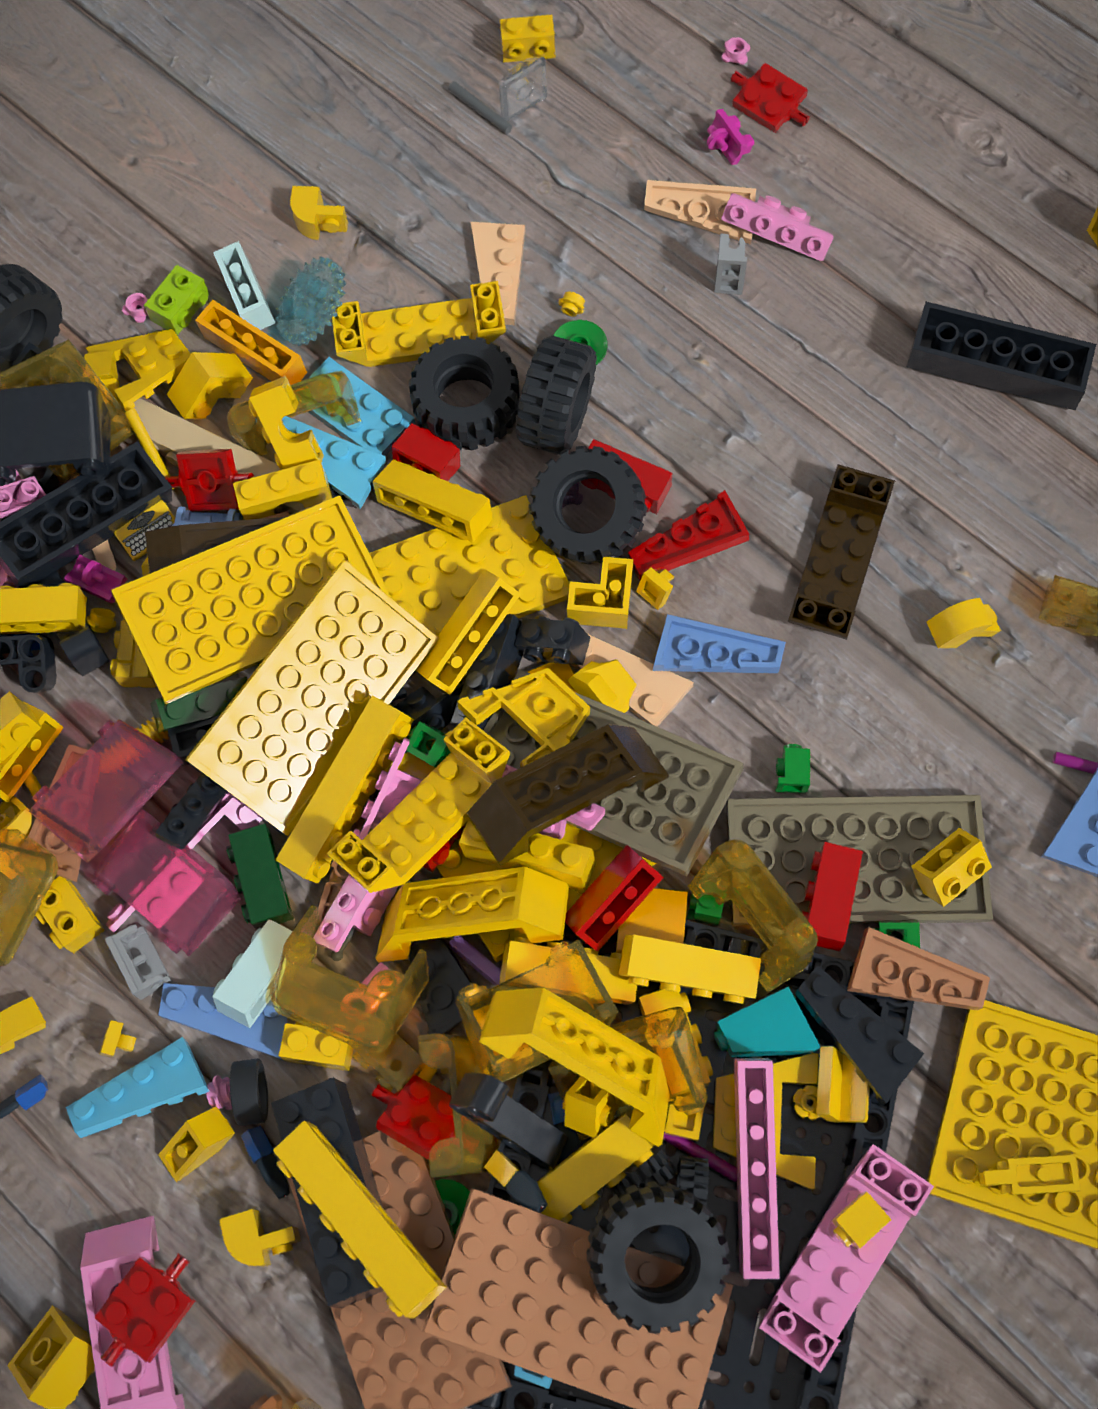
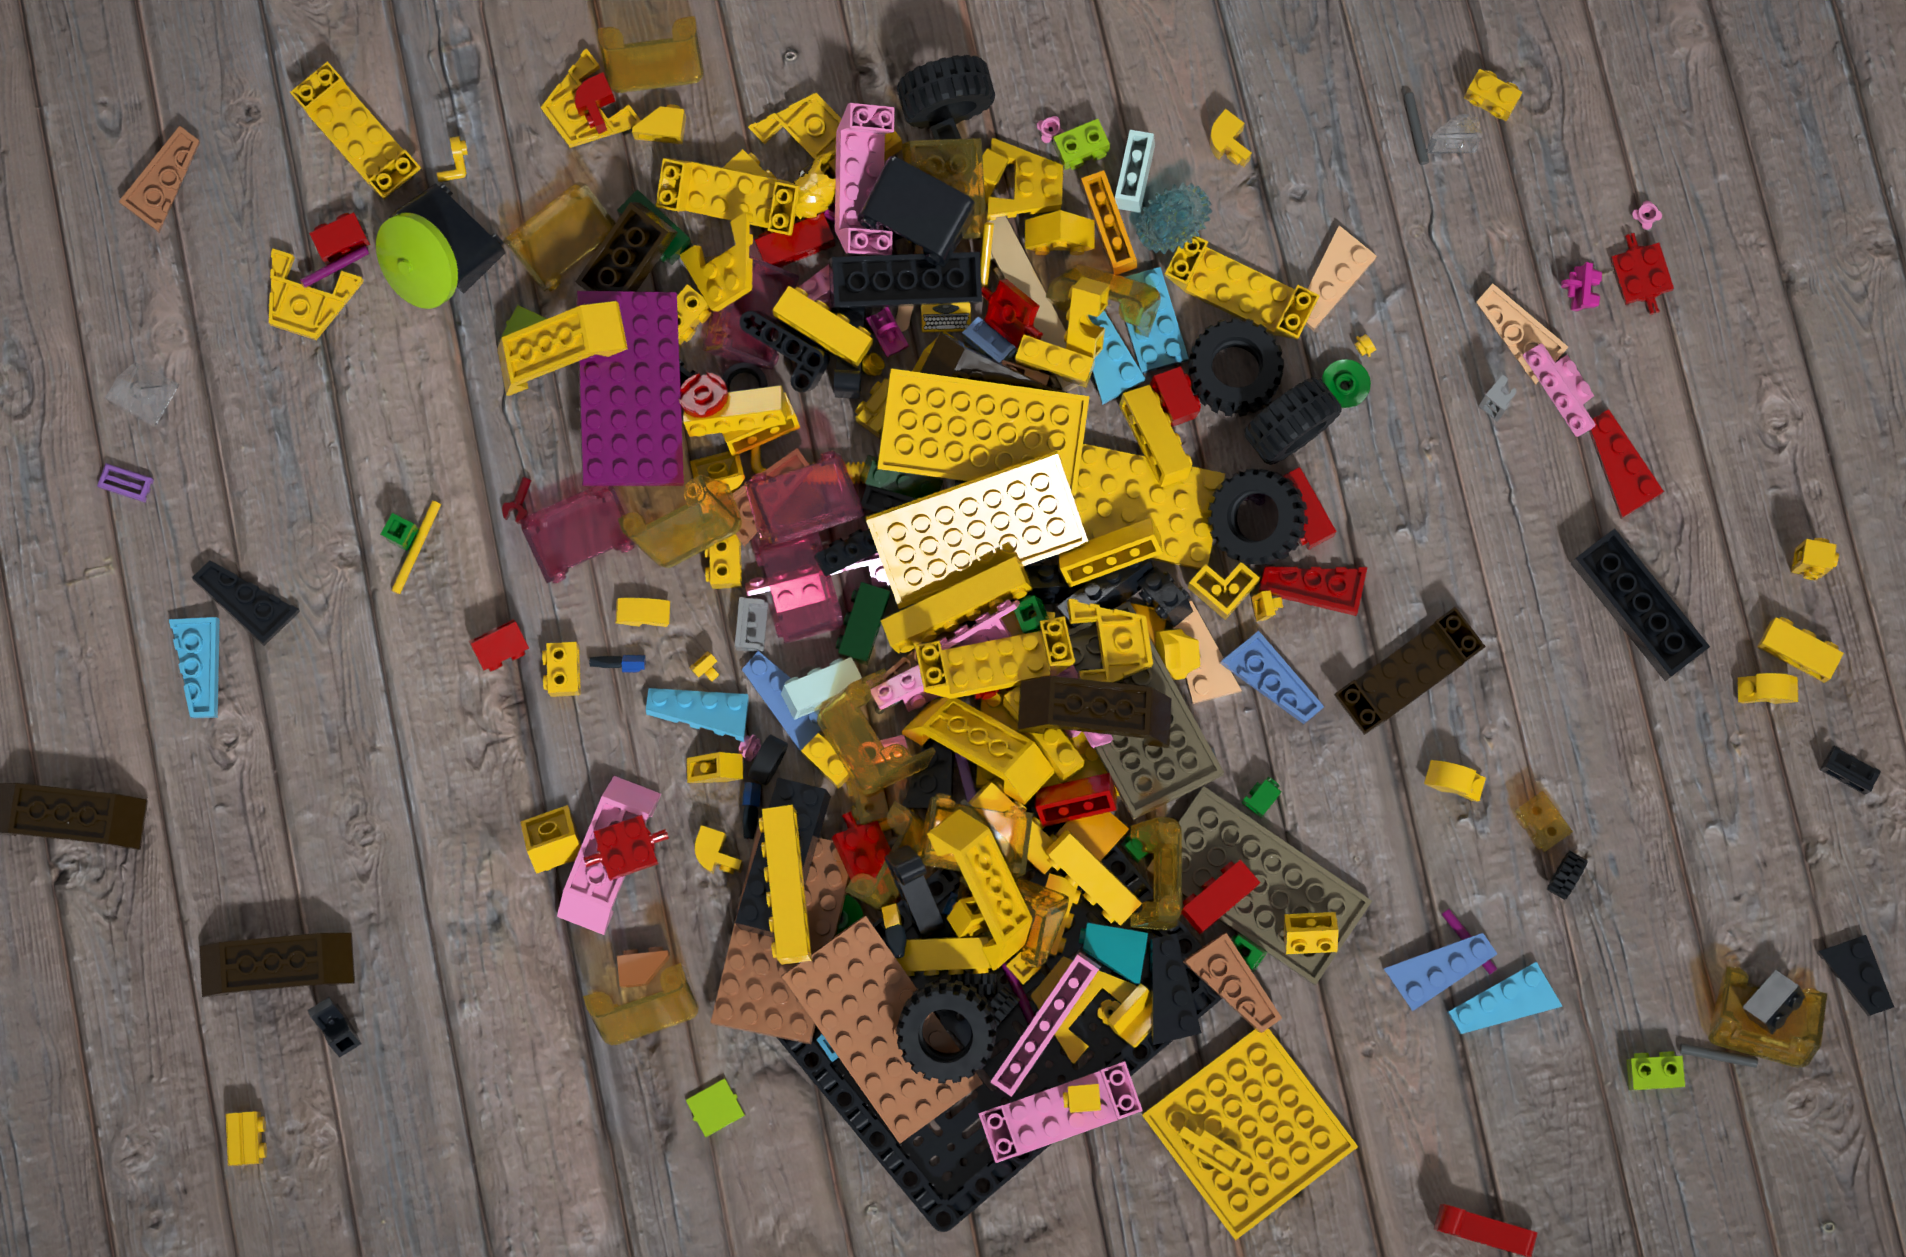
camera: 35 degrees right, 10 degrees up
(892, 260) = (1626, 471): none -> red wing

